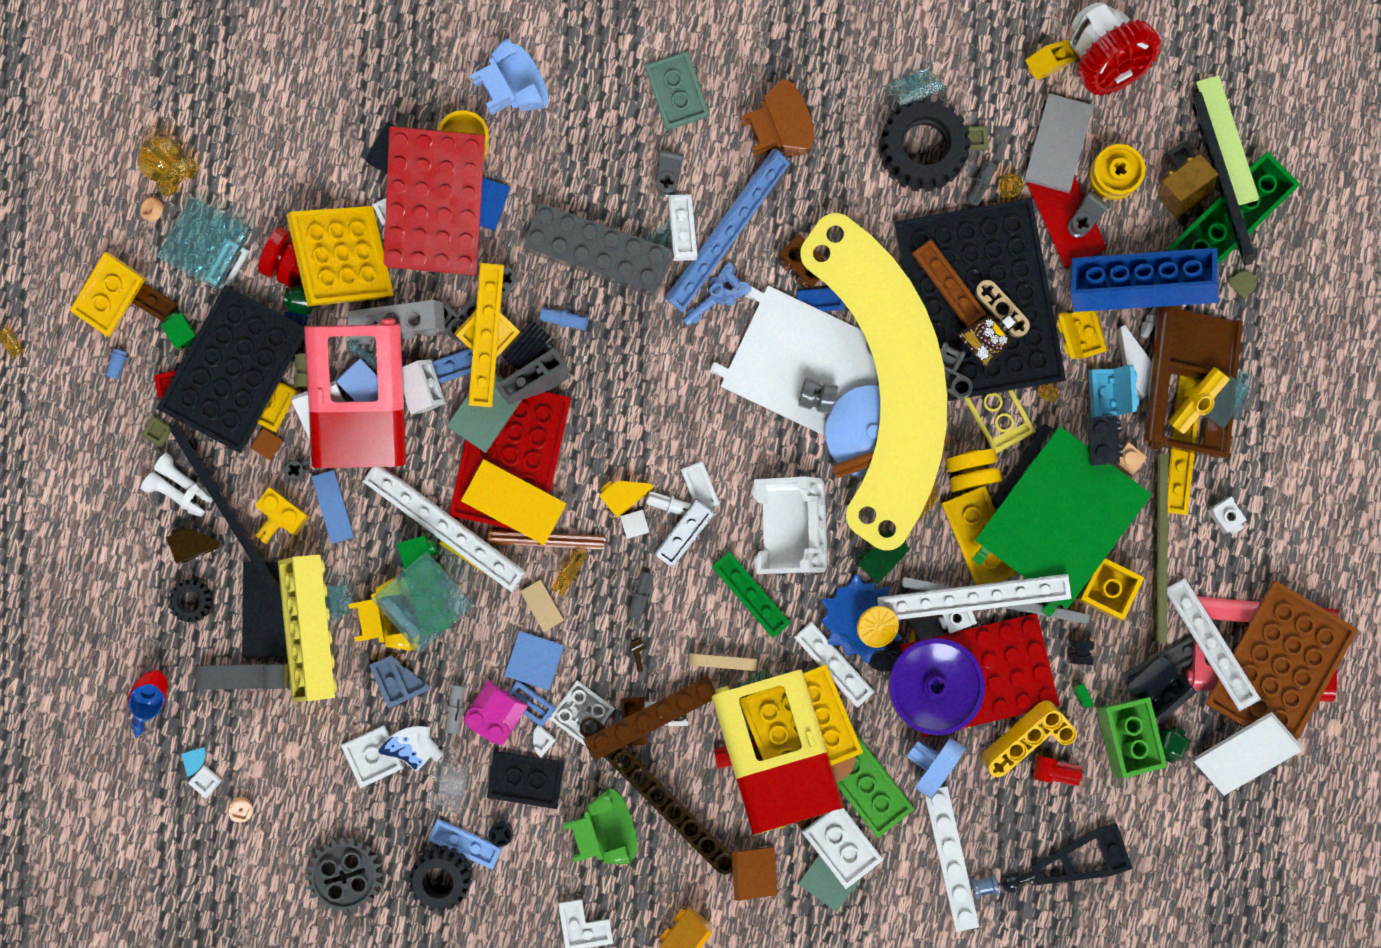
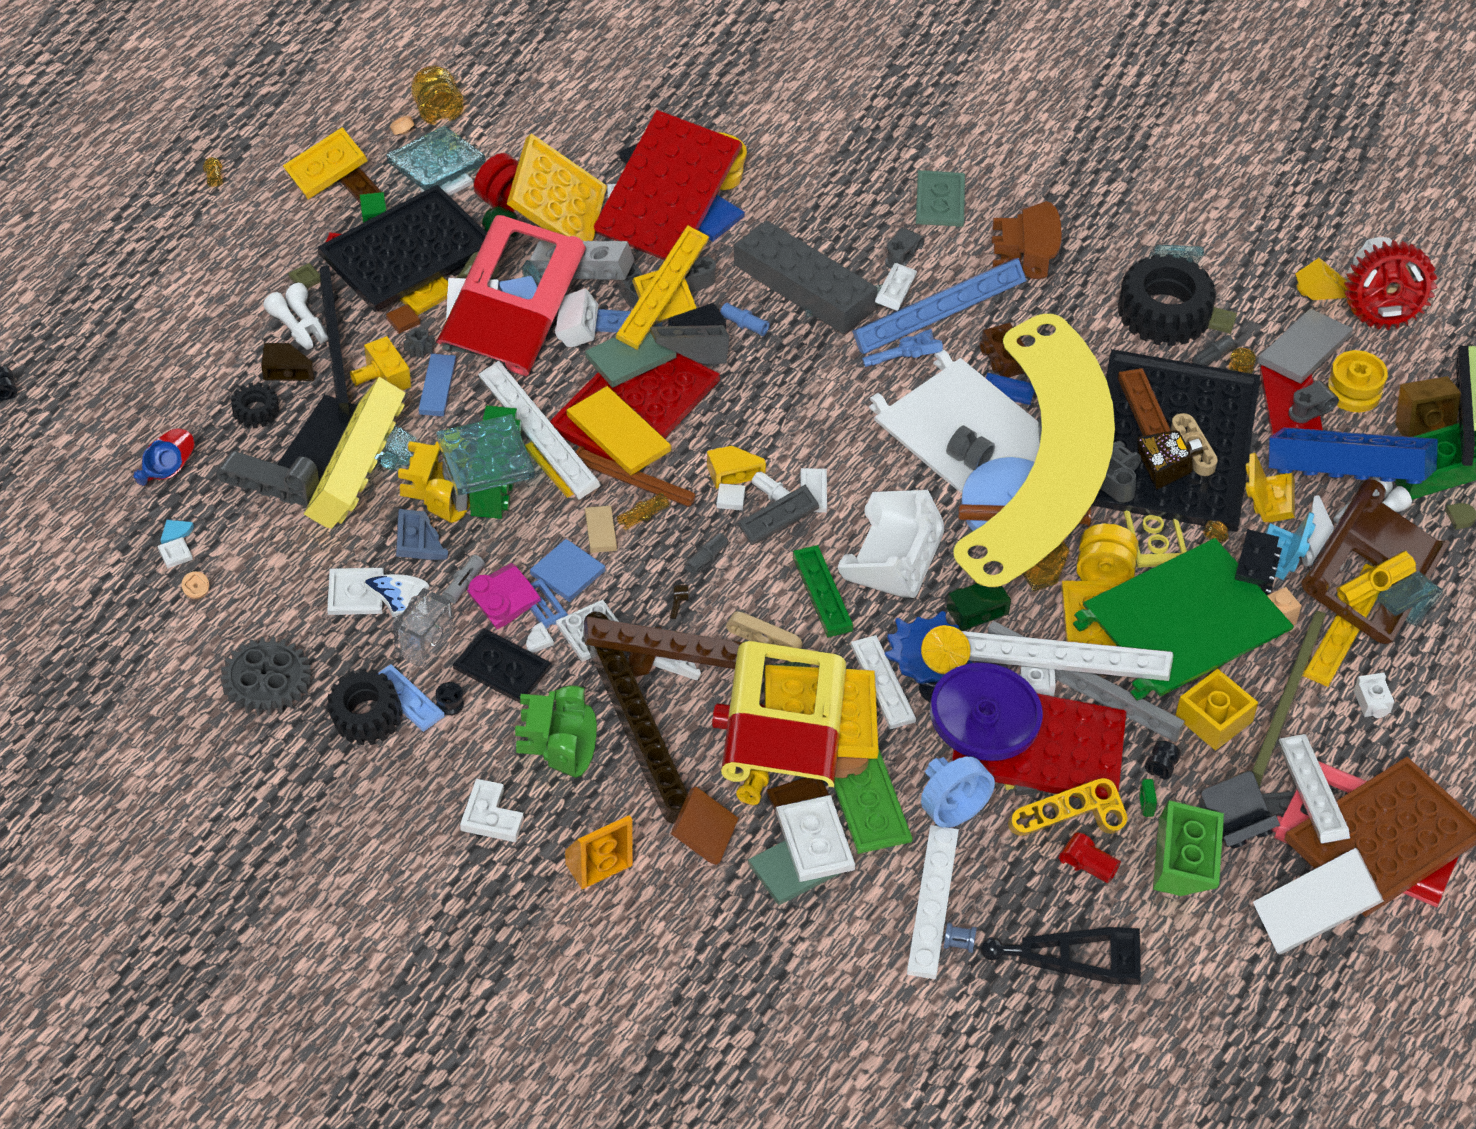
camera: 25 degrees right, 35 degrees down
(116, 363) = (300, 216): medium blue pin -> none
(512, 80) = (784, 138): light blue piece -> none
(1174, 743) = (1235, 878): dark green head -> none

